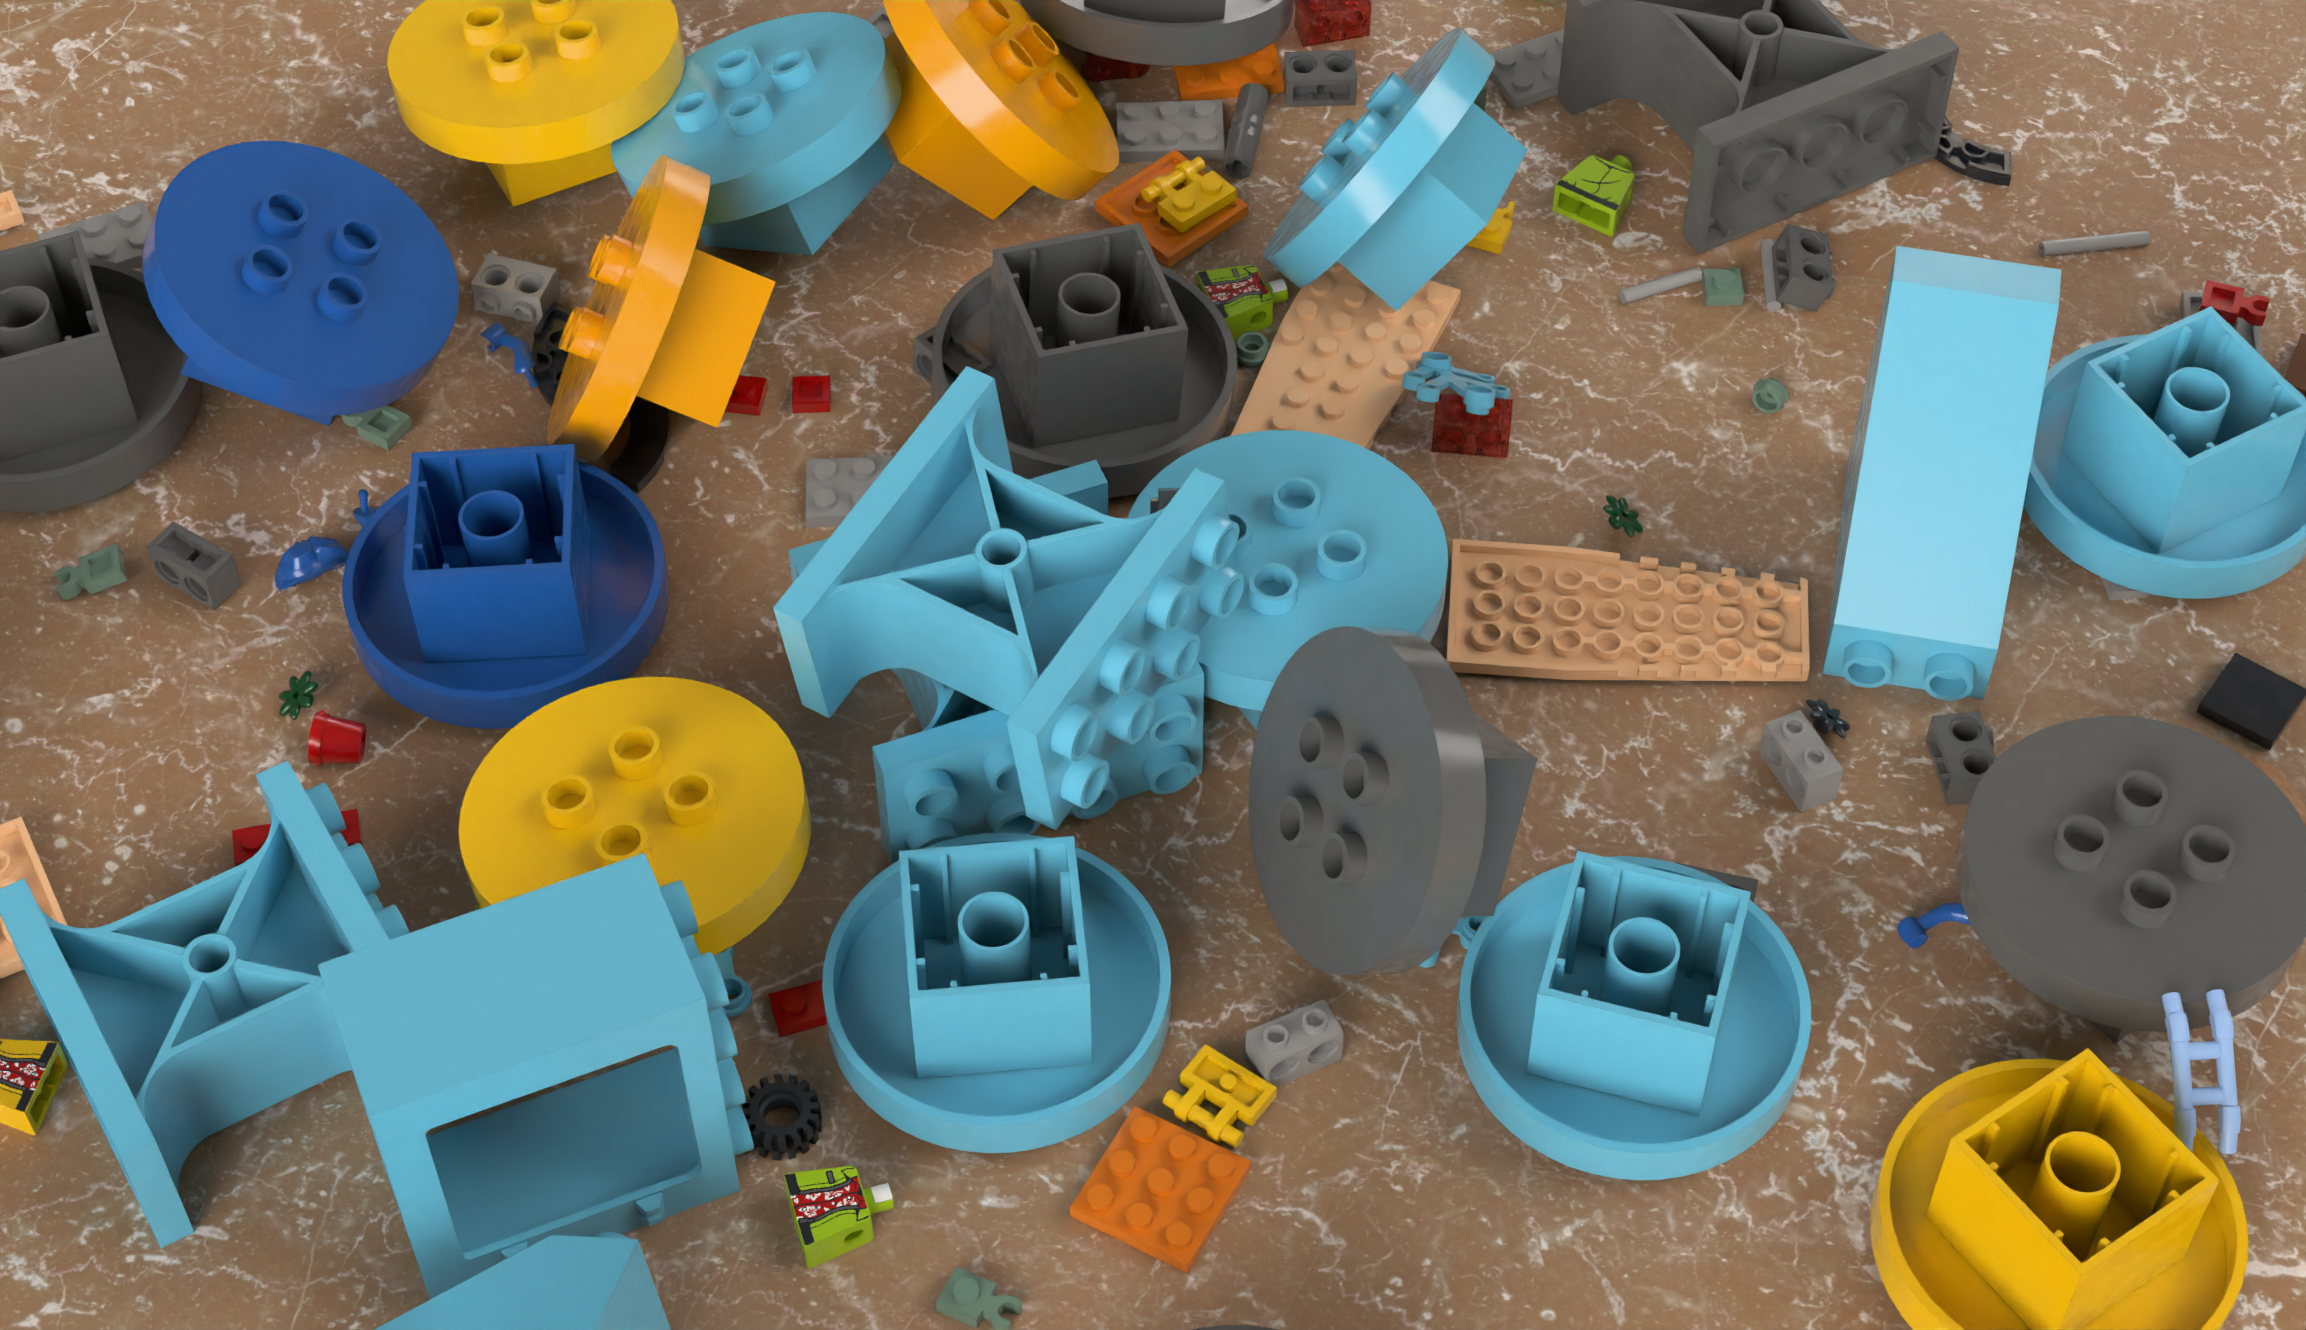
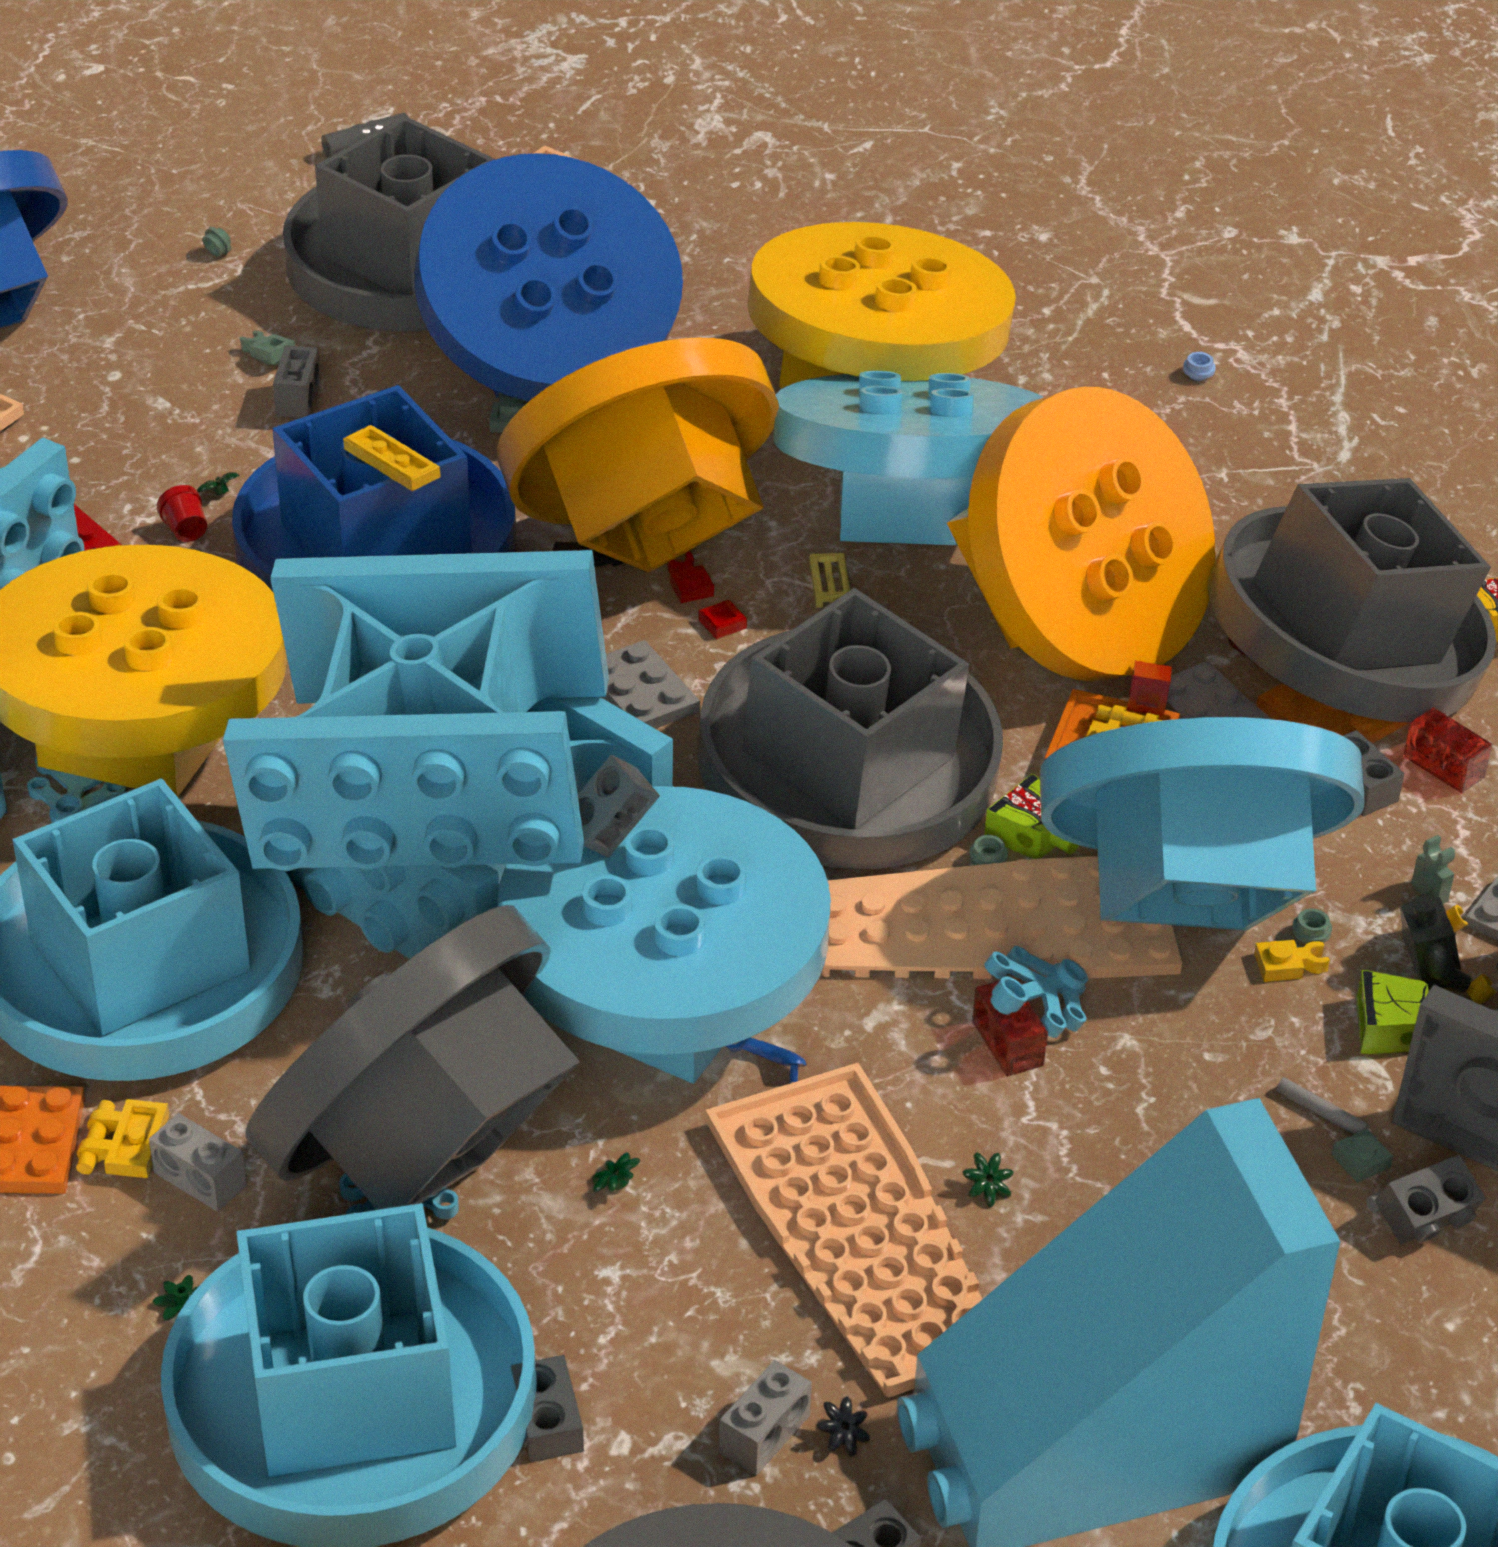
camera: 60 degrees right, 10 degrees down
(536, 500) = (391, 457): none -> yellow tile
(811, 300) = (831, 595): none -> light yellow tile
(1145, 149) = (1149, 688): none -> red brick
(1437, 1120) = (176, 1297): none -> dark green plant
(1550, 129) = (1433, 947): none -> pearl dark grey torso

